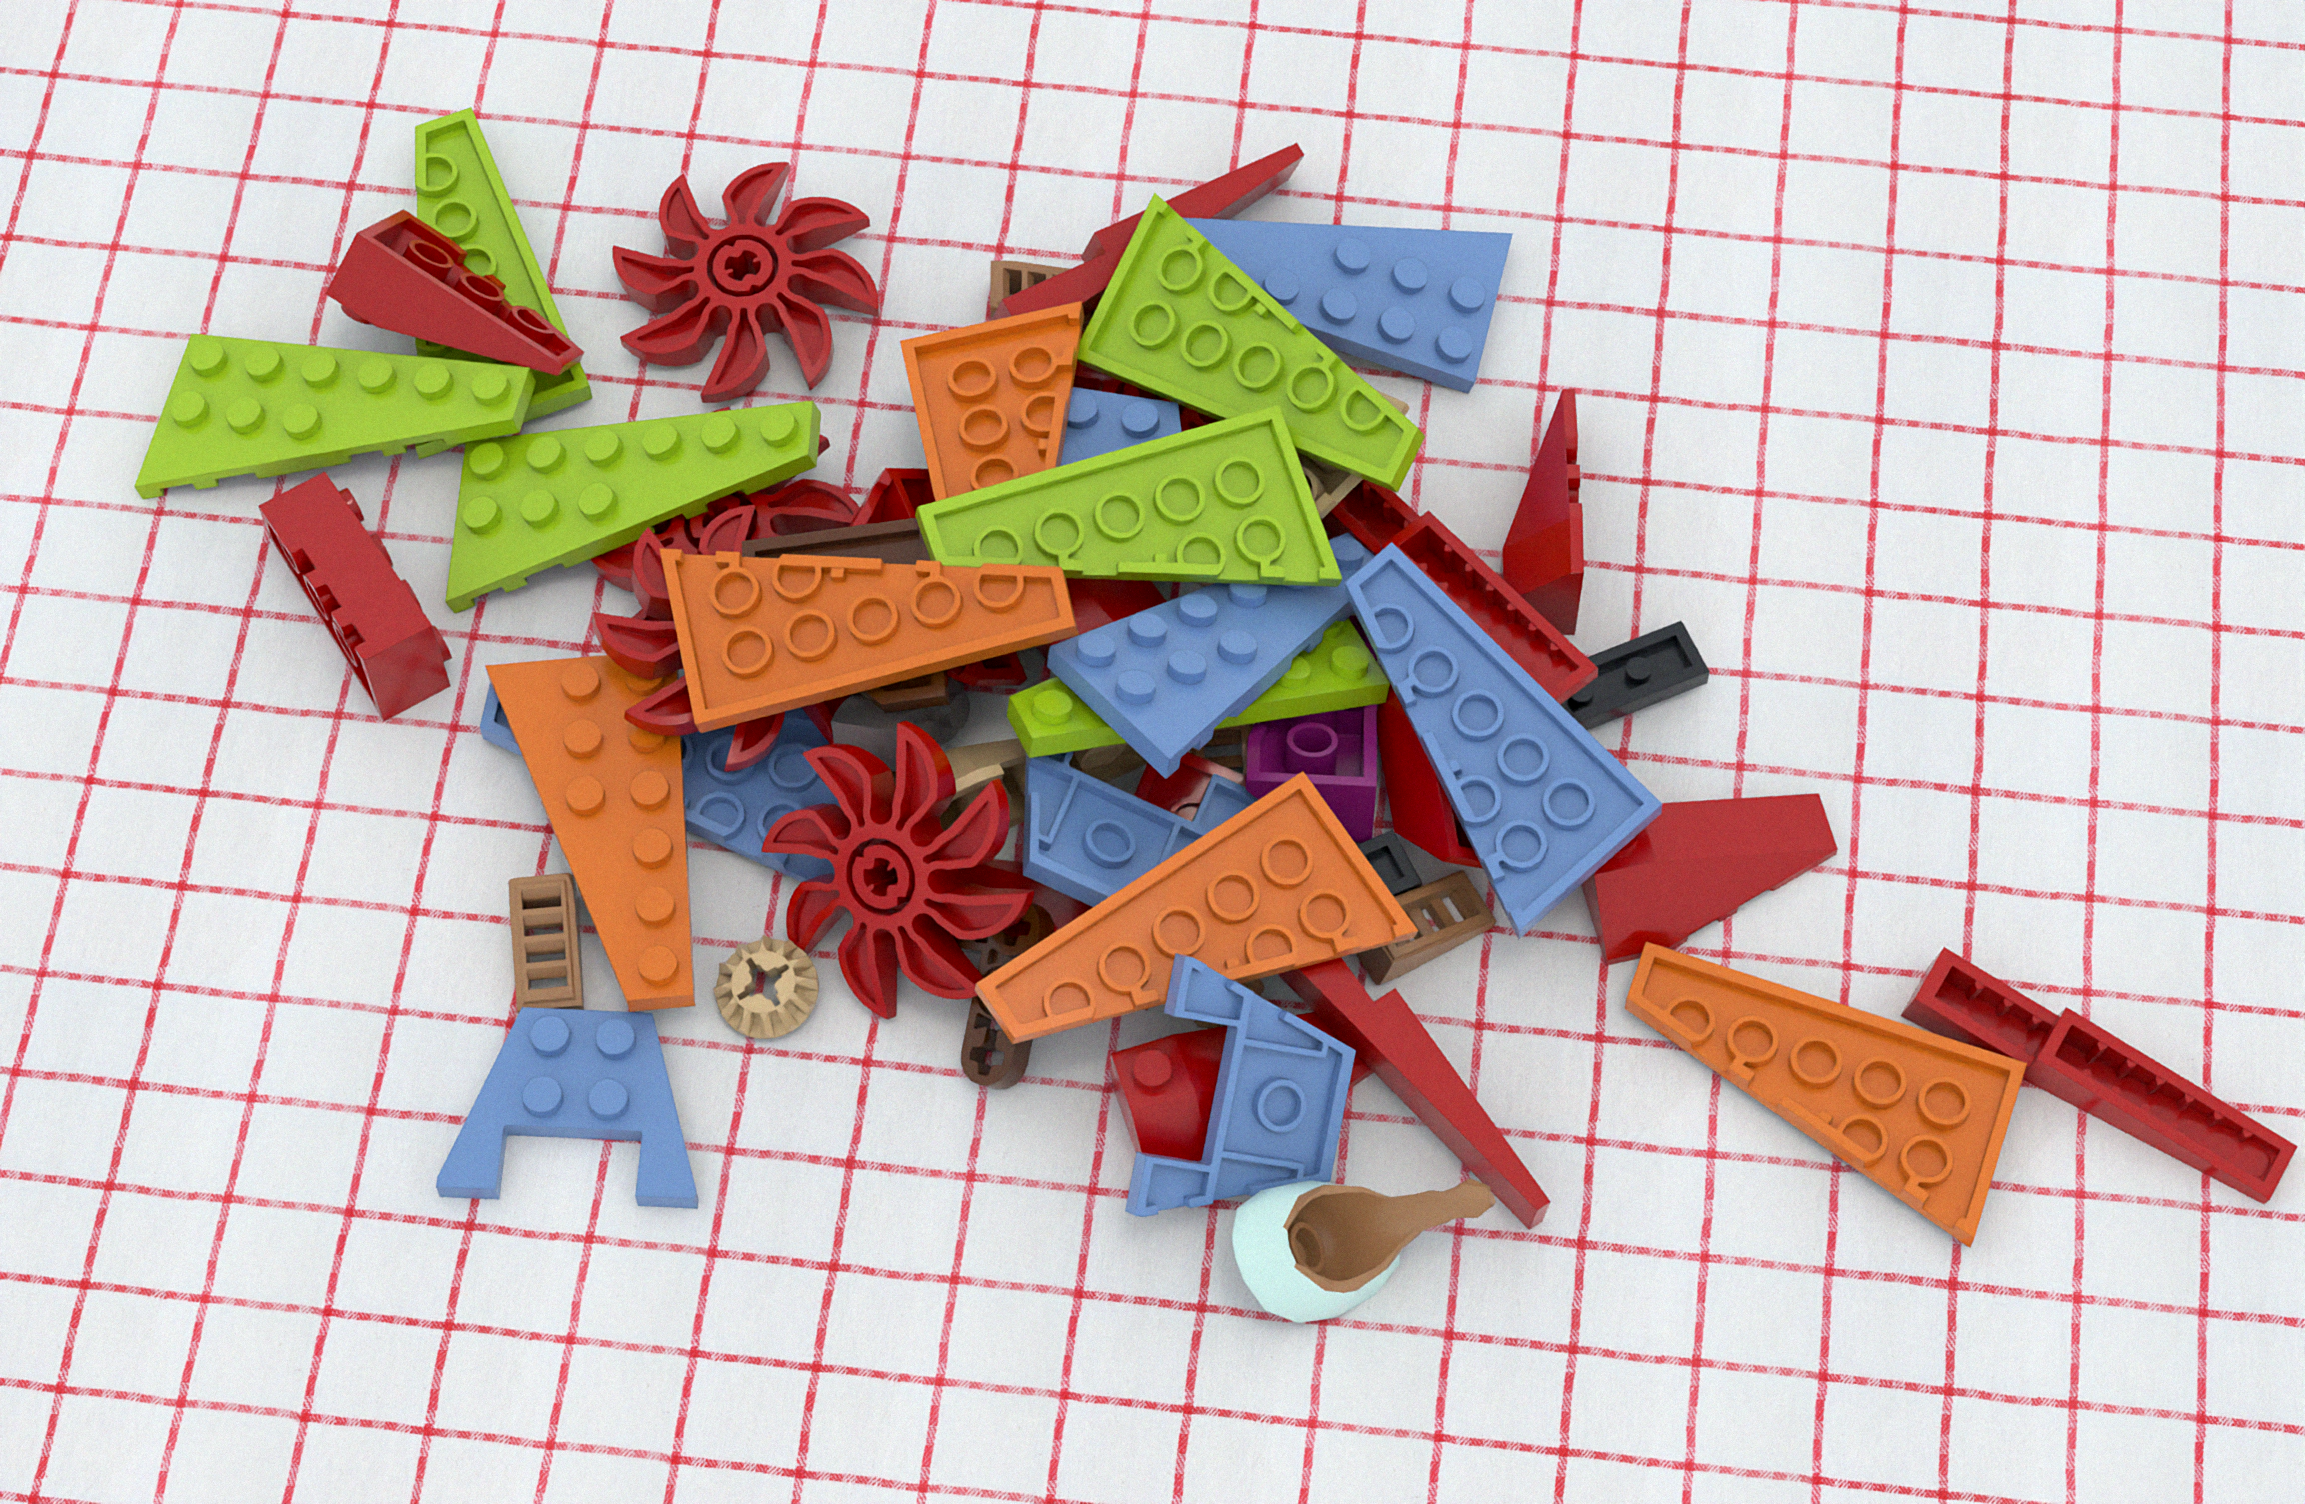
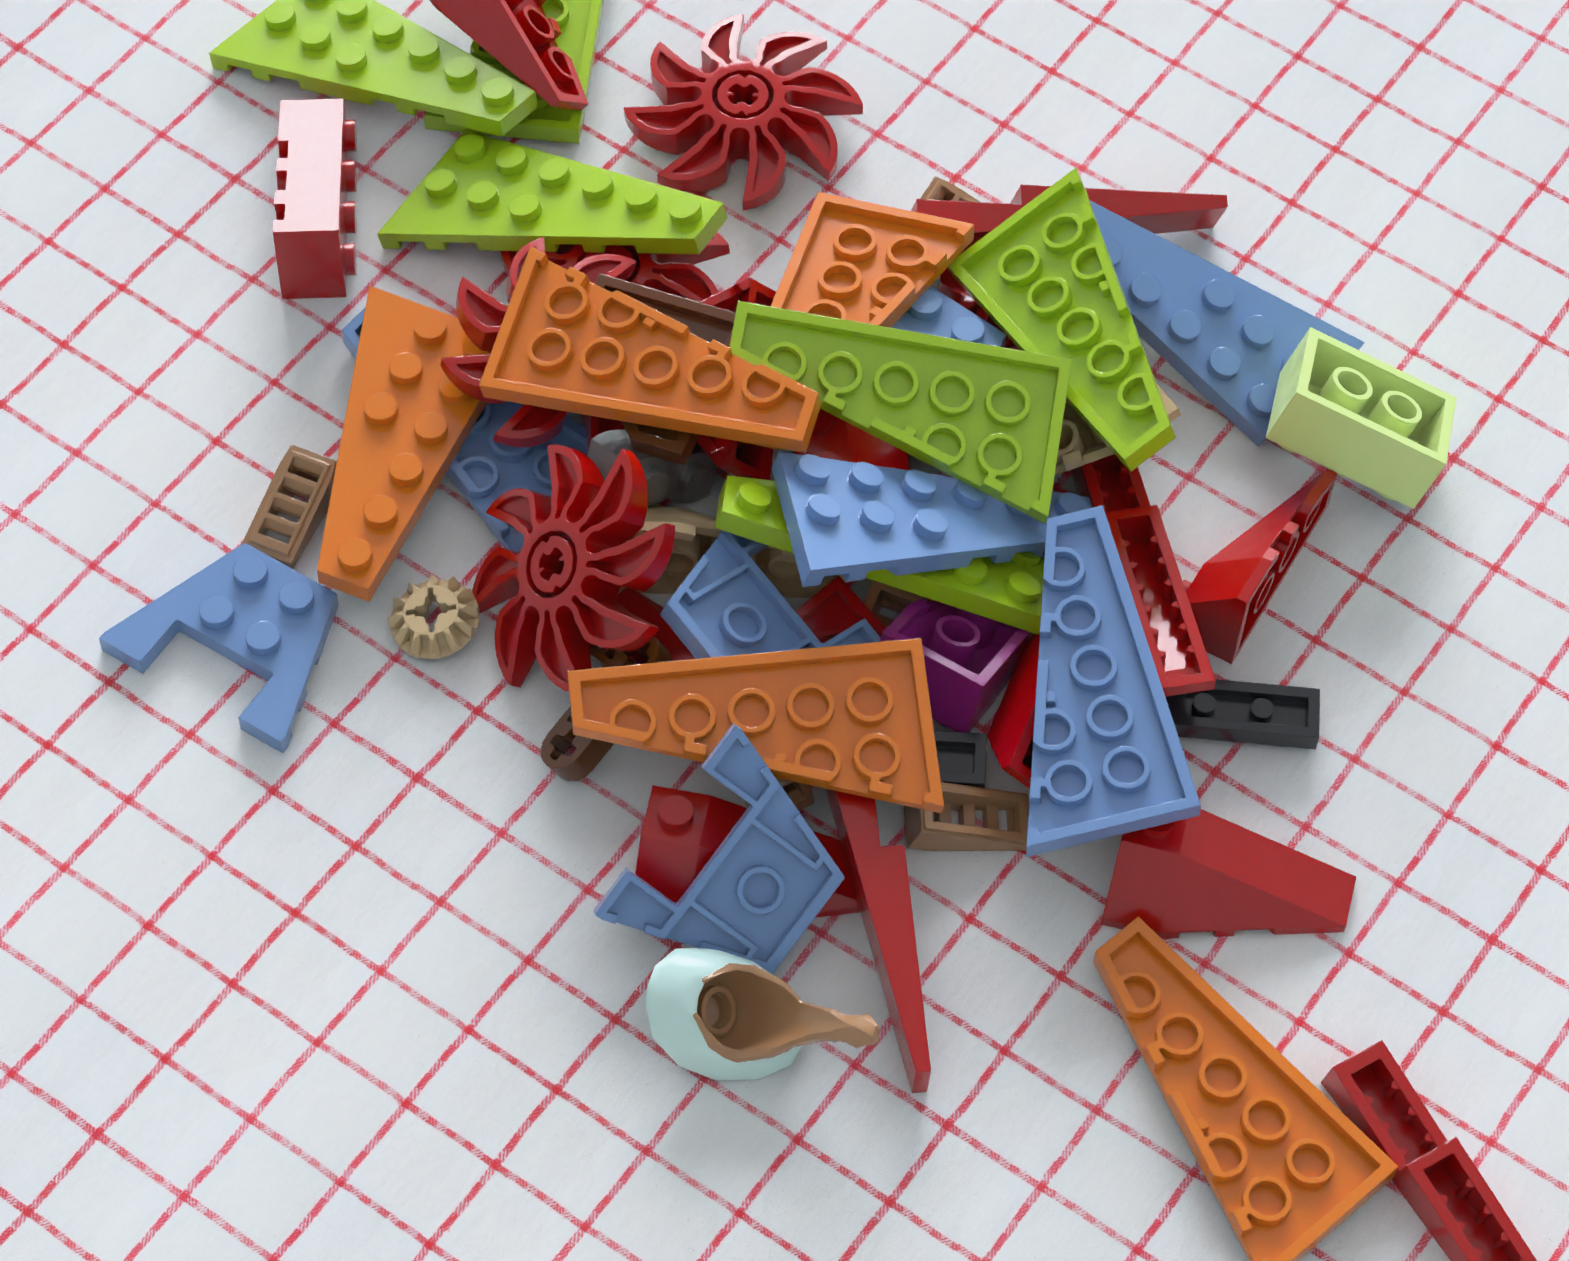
camera: 25 degrees right, 5 degrees down
(1568, 320) = (1362, 418): none -> yellowish green brick

